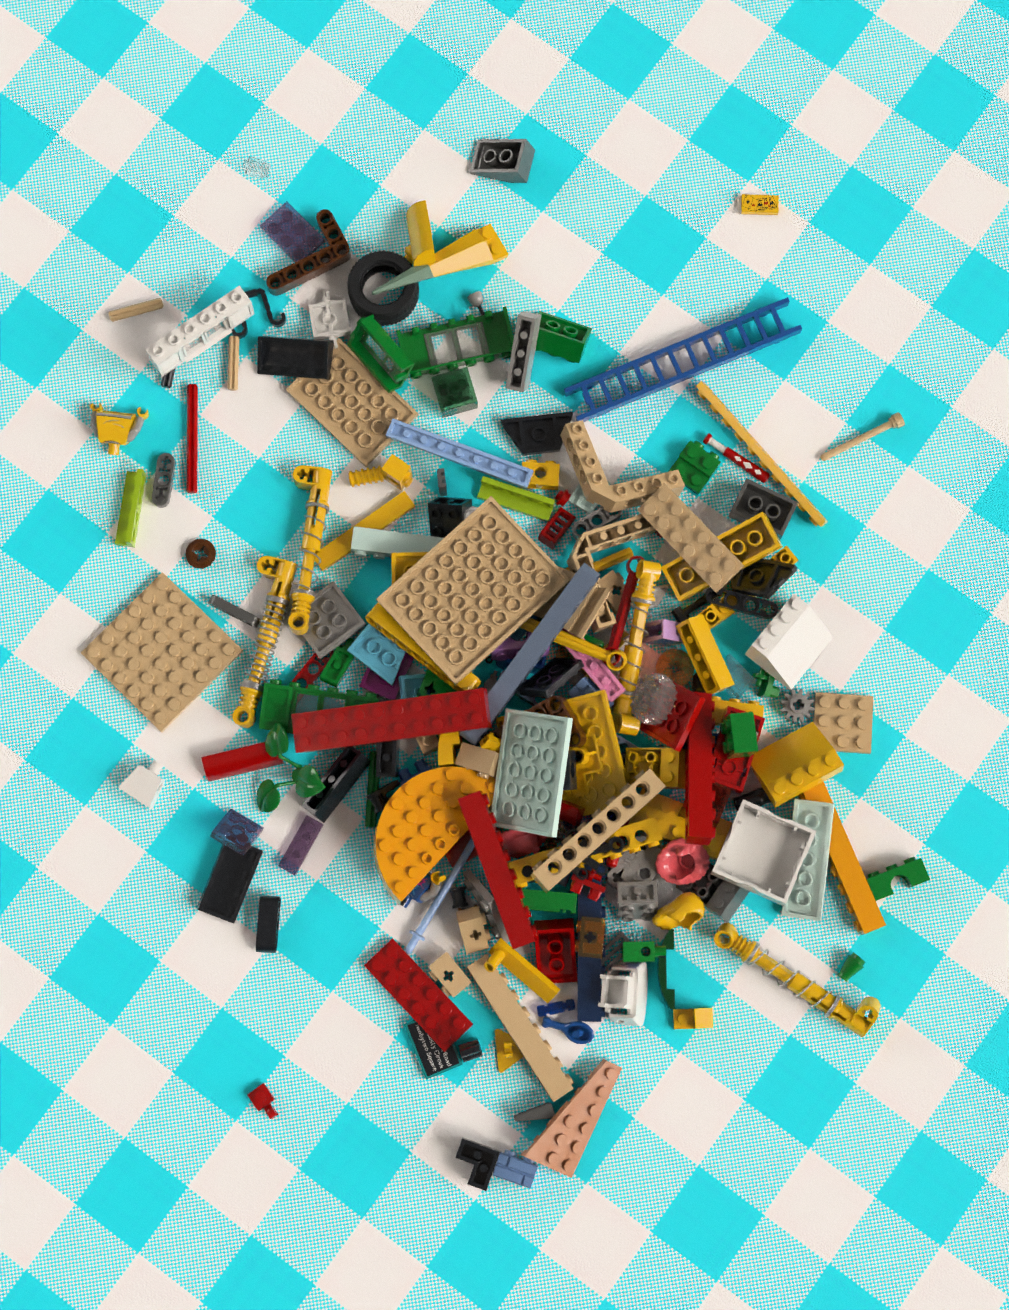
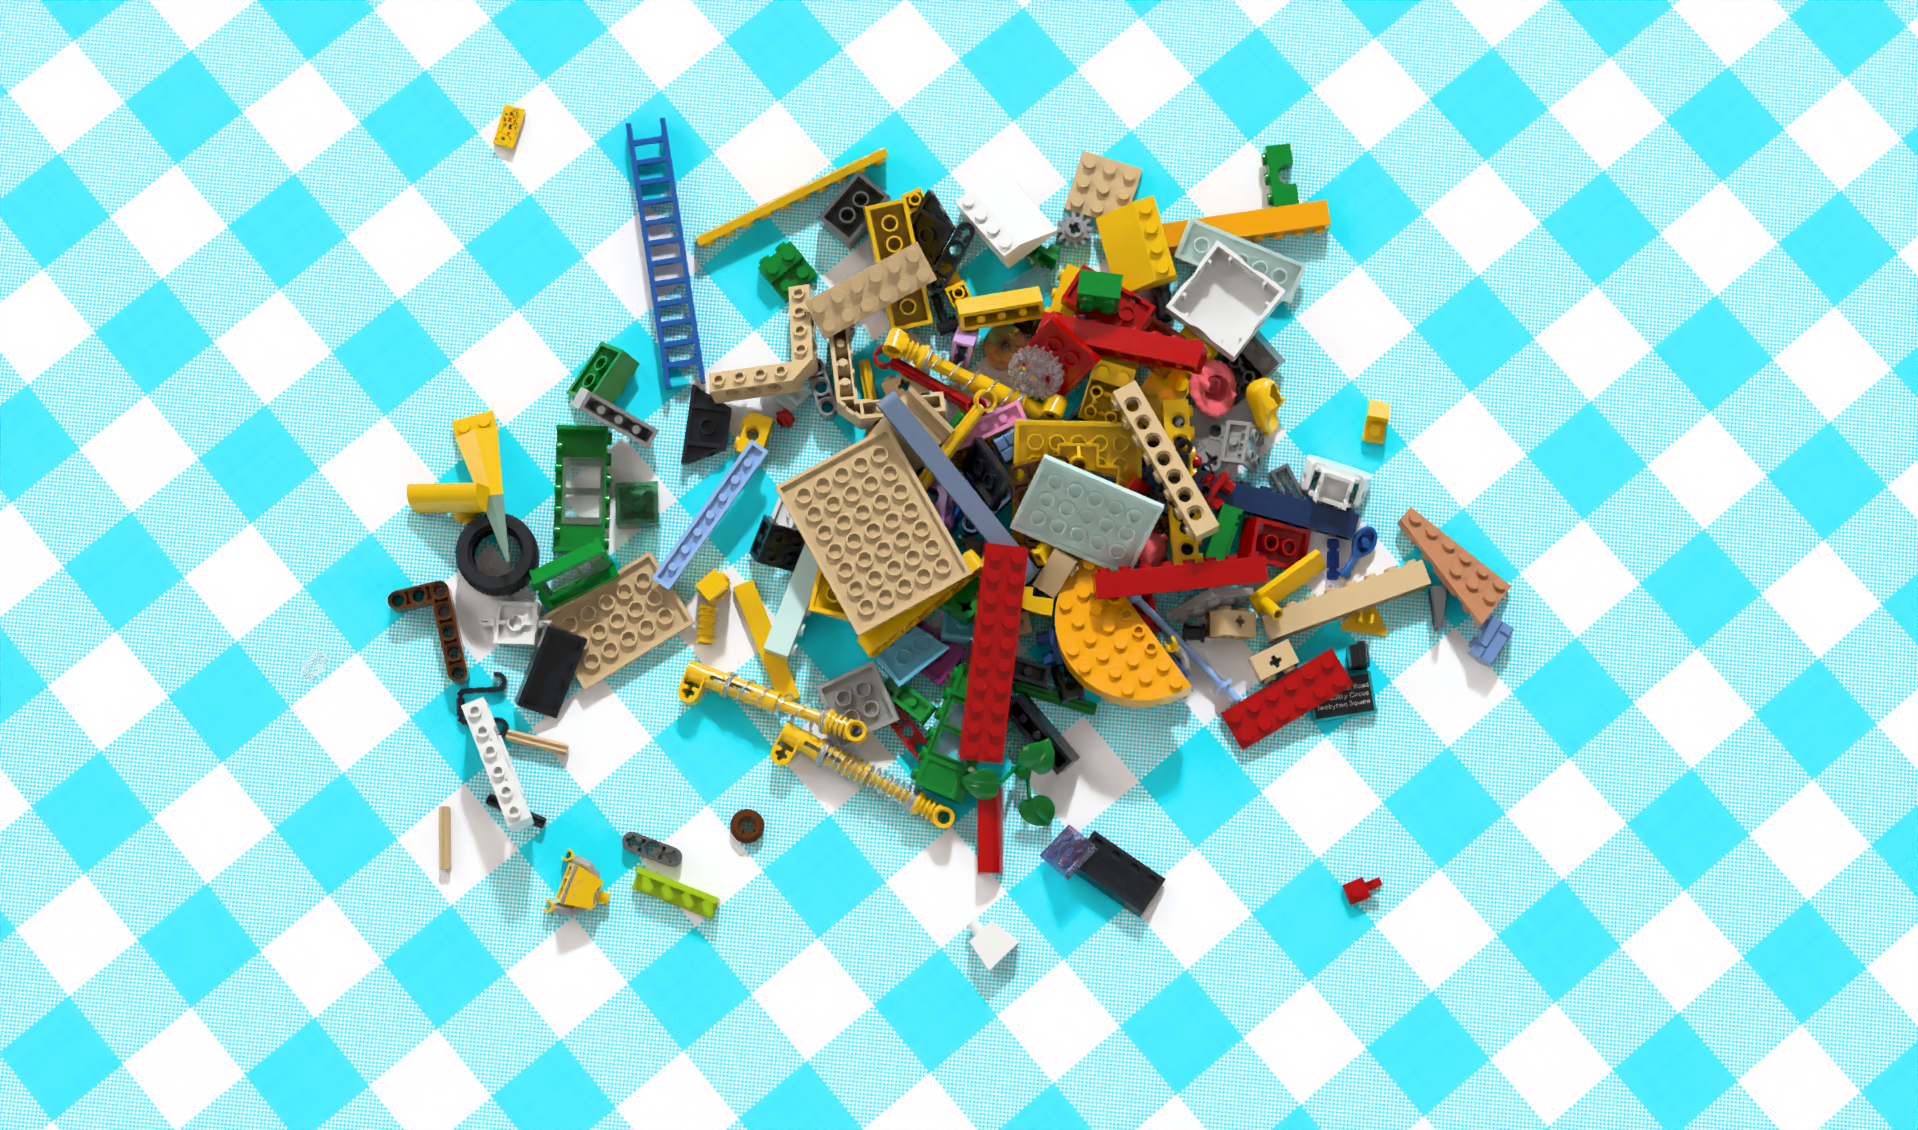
camera: 80 degrees left, 0 degrees up
(162, 652) = (847, 893): tan plate -> none
(192, 437) = (612, 807): red axle -> none
(234, 611) = (822, 802): dark grey beam -> none
(268, 924) = (1175, 842): black beam -> none
(292, 233) = (403, 642): clear purple plate -> none
(301, 845) = (1097, 788): clear purple plate -> none
(441, 482) = (729, 540): flat silver tile -> none
(476, 300) = (536, 457): light grey hinge -> none
(483, 1159) = (1474, 671): black brick -> none
(503, 159) = (381, 390): dark grey slope -> none
(516, 499) = (774, 469): lime fence -> none
(550, 538) = (825, 443): red slope -> none
(597, 927) = (1263, 491): clear orange brick -> none
(632, 951) = (1296, 462): green torso -> none
(668, 994) = (1292, 427): dark green slope -> none
(739, 460) = (797, 217): red piece -> none
(799, 984) = (1396, 276): yellow piece -> none
(851, 966) = (1360, 247): green cone -> none
(895, 421) = (791, 49): tan piece -> none

